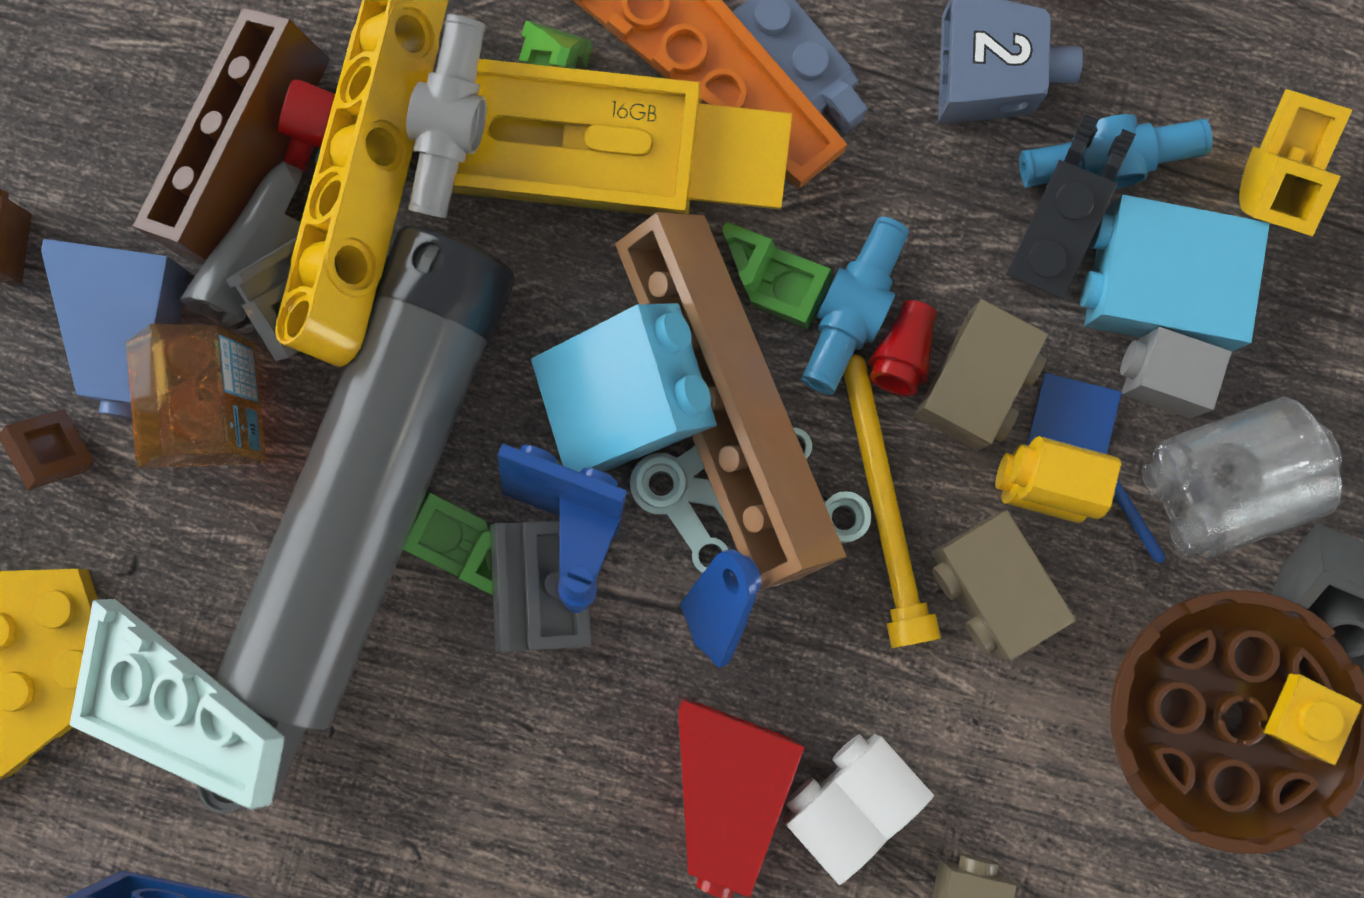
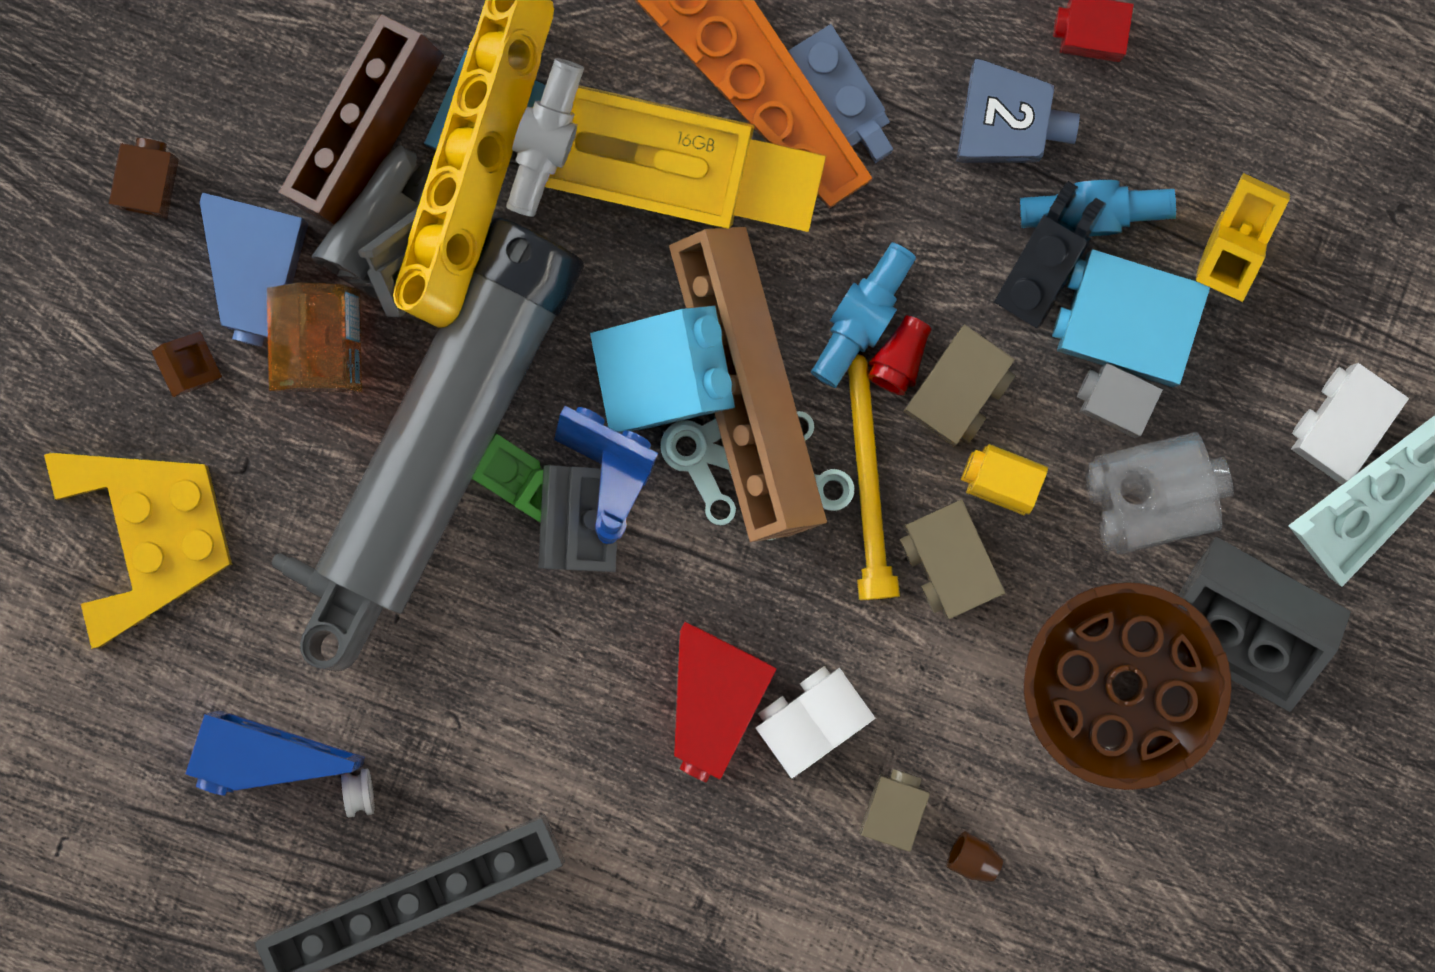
camera: 10 degrees right, 5 degrees up
(169, 711) = (280, 582): light aqua wing -> none
(304, 121) = (423, 115): red piece -> none
(553, 47) = (635, 71): bright green slope -> none
(721, 604) = (722, 550): blue piece -> none
(777, 279) = (801, 283): bright green slope -> none
(1085, 418) = (1038, 432): blue piece -> none
(1312, 718) = (1178, 689): yellow plate -> none

